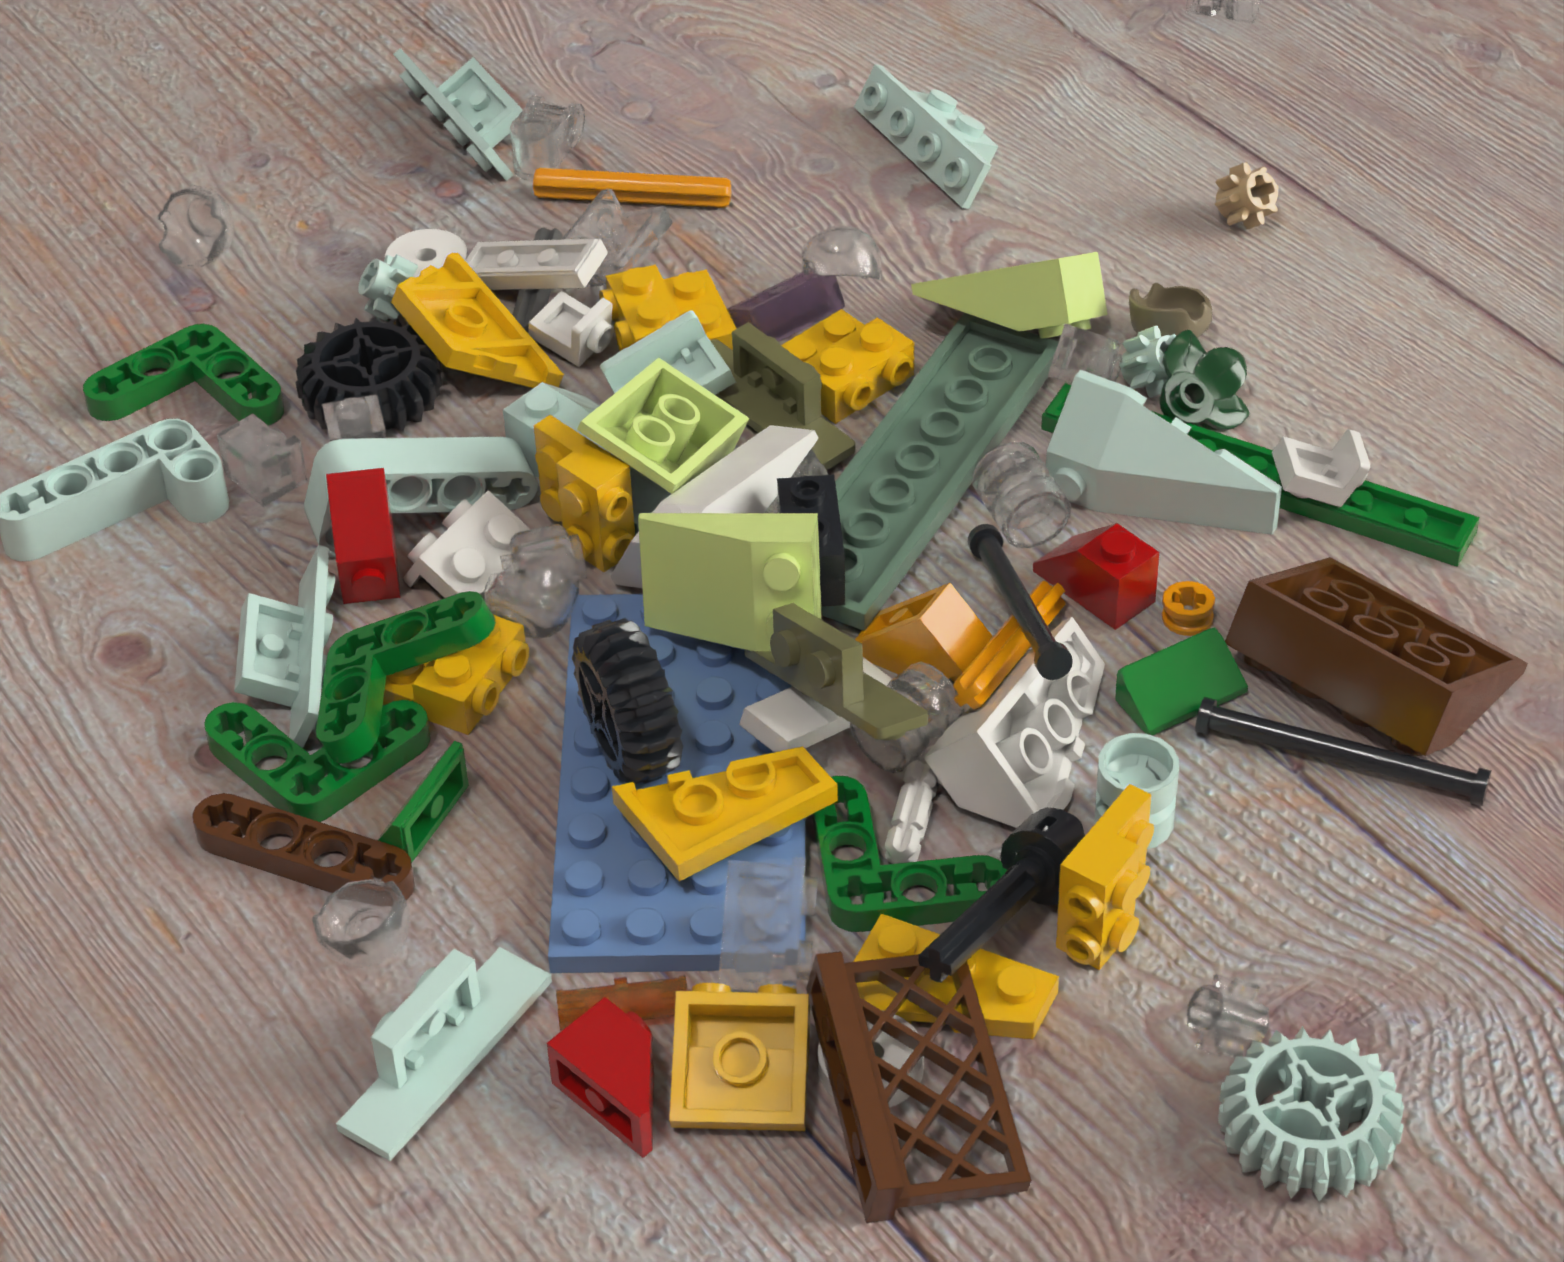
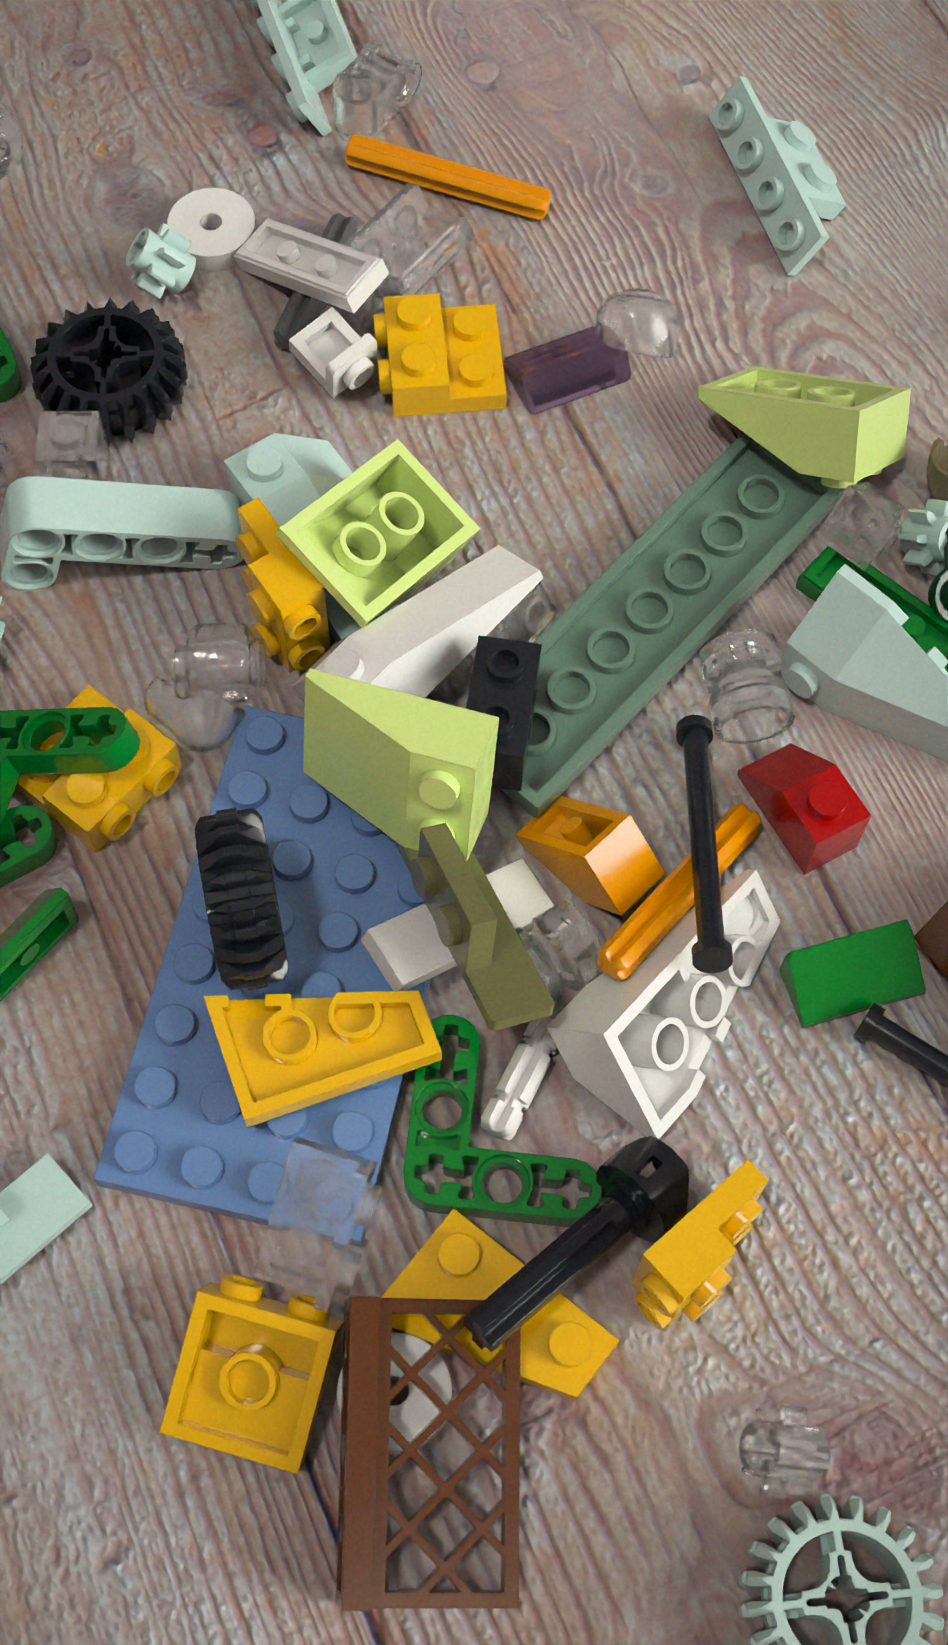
camera: 10 degrees right, 20 degrees up
(363, 535) = (40, 592): red slope -> none
(468, 548) = (144, 631): white bracket -> none
(471, 326) = (226, 332): yellow wing -> none
(608, 1071) = (118, 1352): red slope -> none
(646, 998) = (154, 1256): clear orange pin -> none
(679, 344) = (428, 423): light aqua bracket -> none
(779, 391) = (515, 488): olive bracket -> none
(853, 361) = (605, 459): yellow plate -> none
(1146, 764) = (765, 1119): light aqua wheel -> none
(1188, 621) = (872, 876): light orange bush -> none

